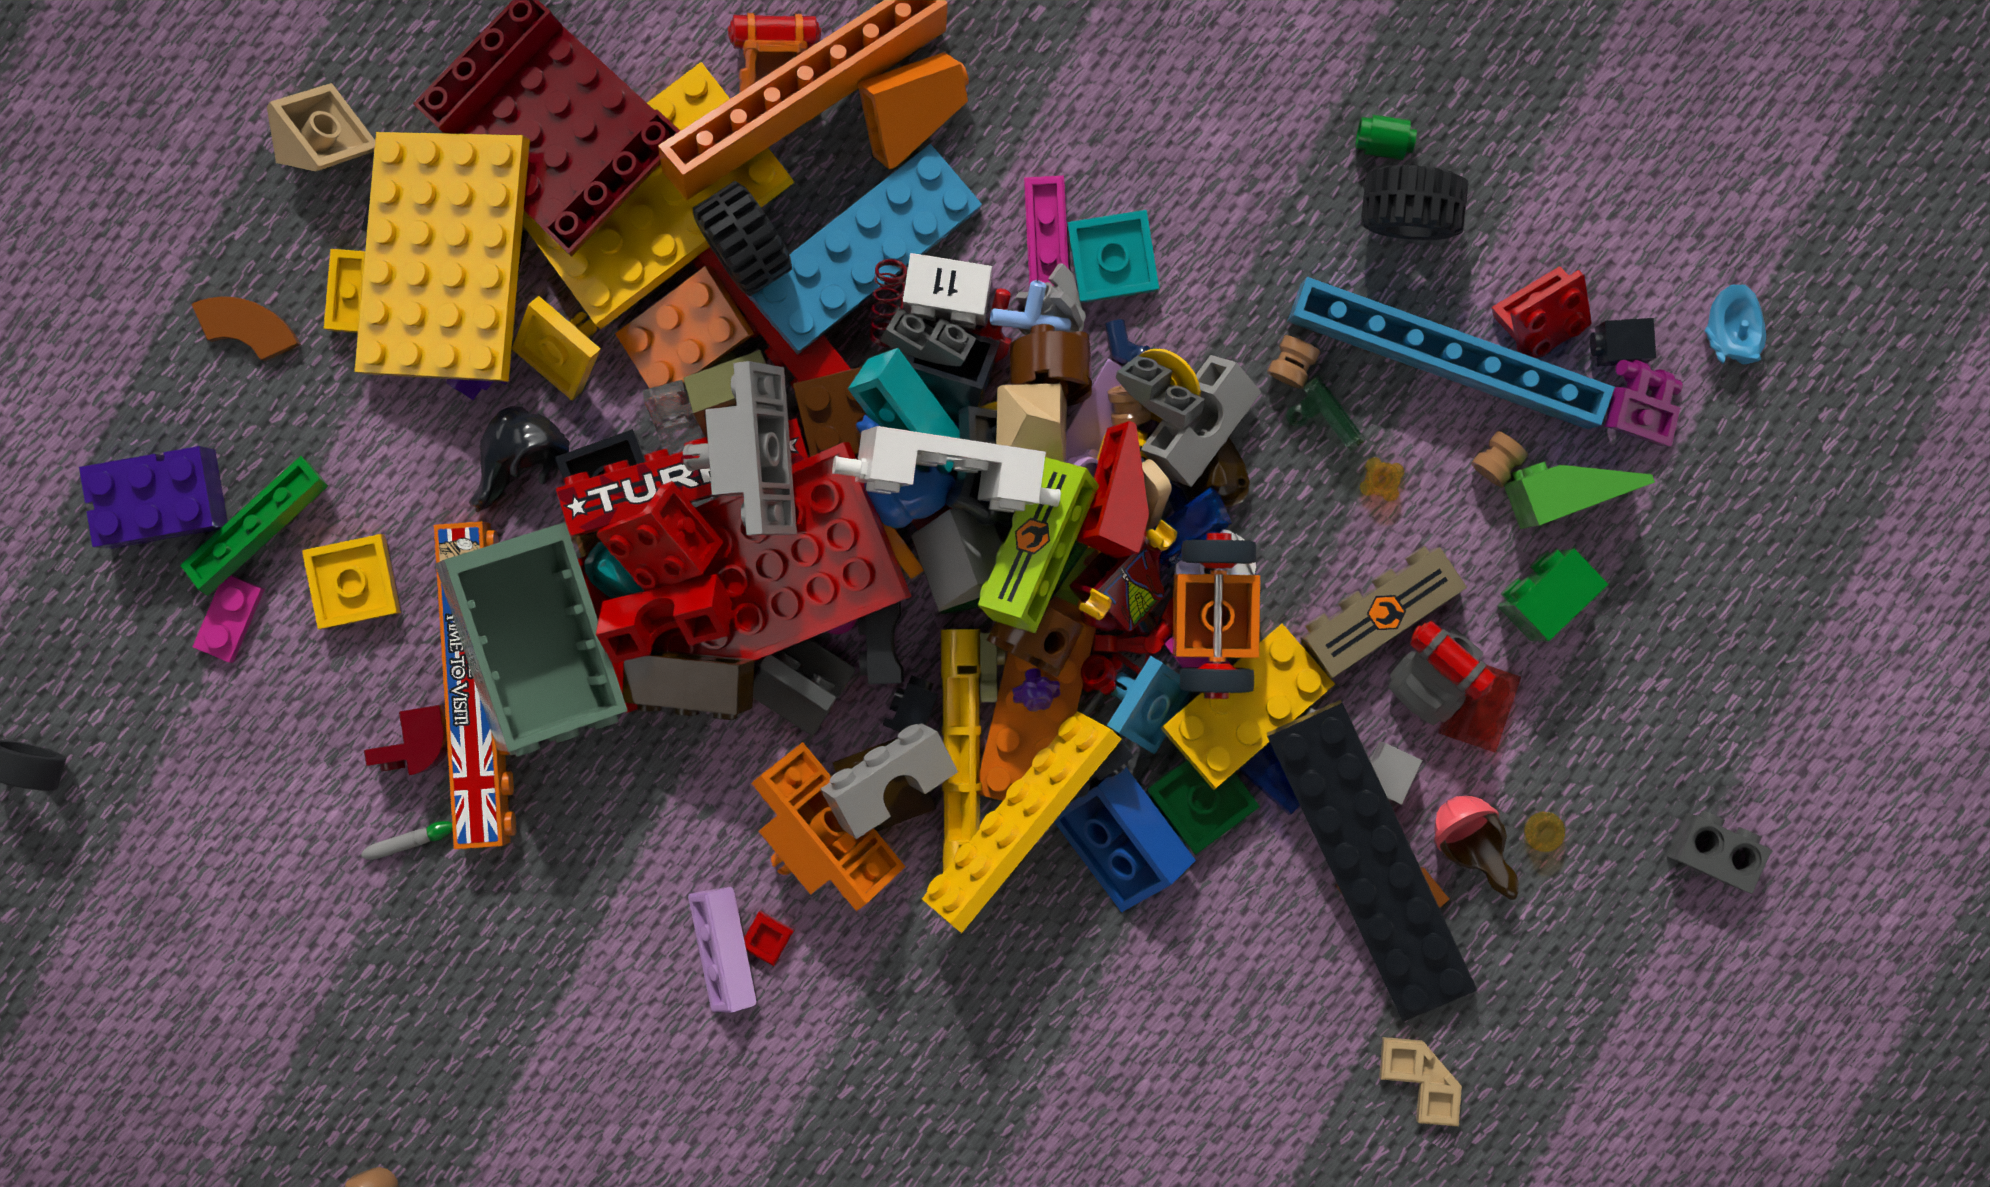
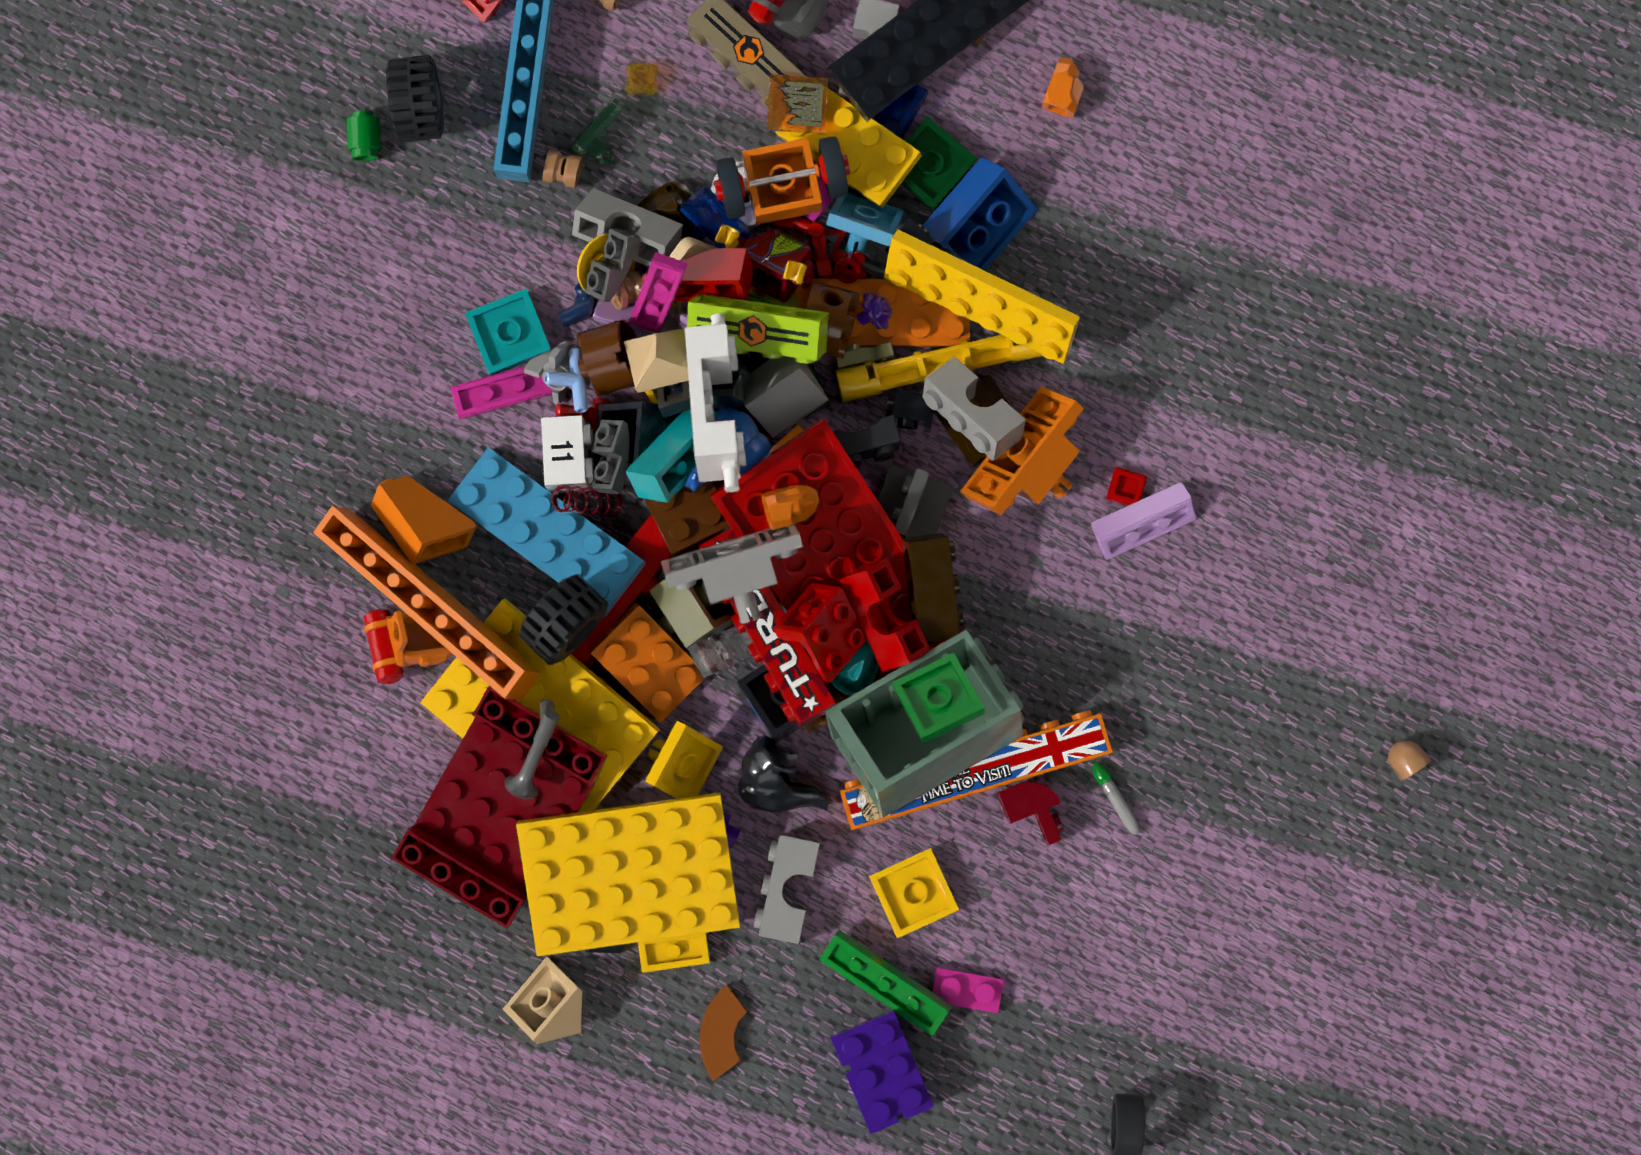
camera: 105 degrees left, 5 degrees down
(420, 451) = (790, 858): none -> light grey arch
(543, 658) = (938, 697): none -> green plate
(564, 151) = (522, 783): none -> dark grey piece
(813, 533) = (789, 505): none -> orange rock
(1110, 436) = (657, 292): none -> dark pink tile
(1257, 977) = (1064, 89): none -> orange rock
(1307, 655) = (797, 104): none -> piece

